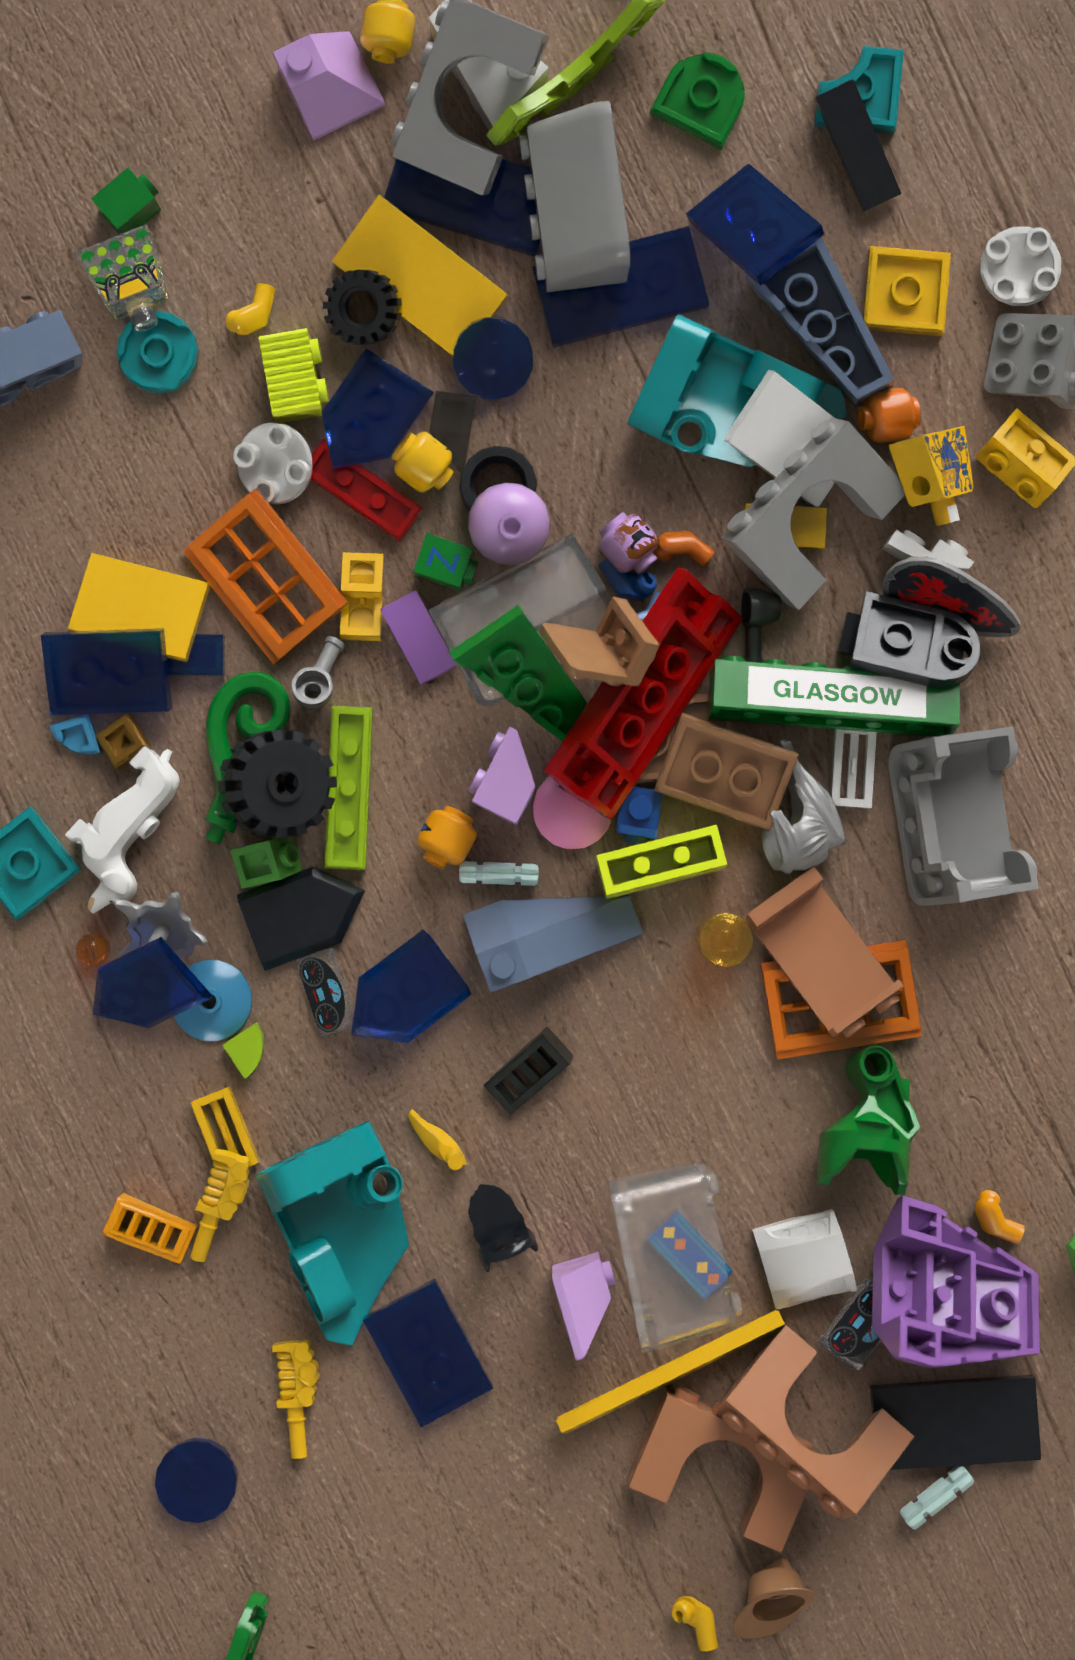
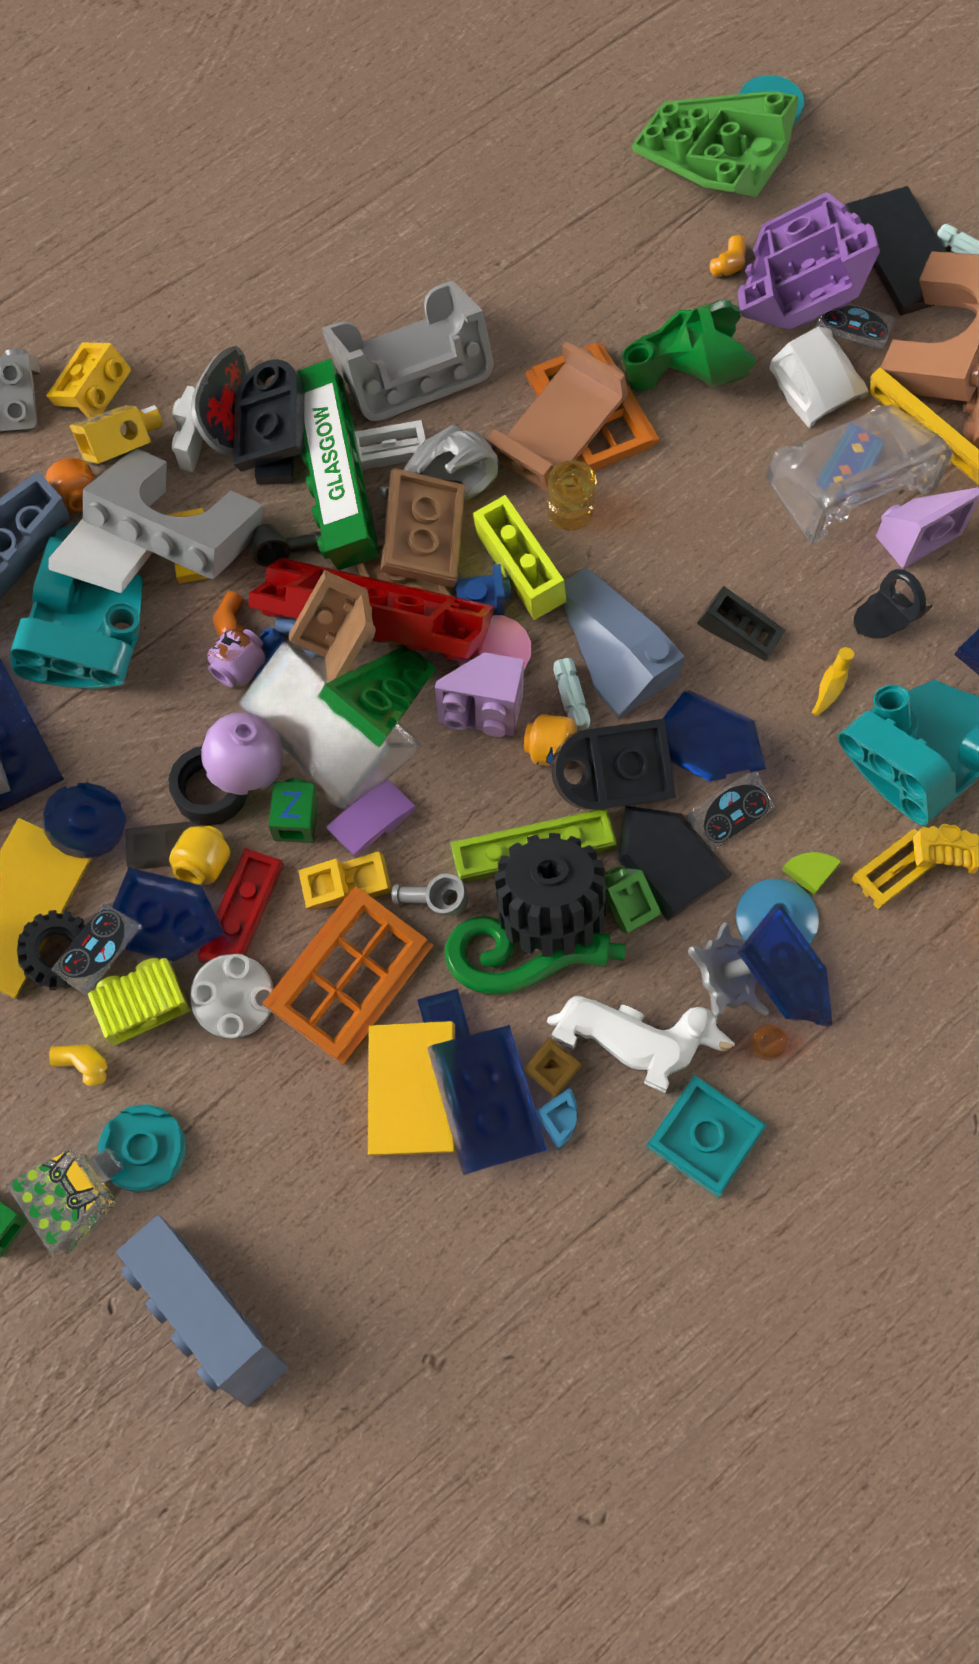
camera: 105 degrees left, 20 degrees down
(344, 344) = (95, 948): none -> slope
(398, 891) = (617, 764): none -> black tile

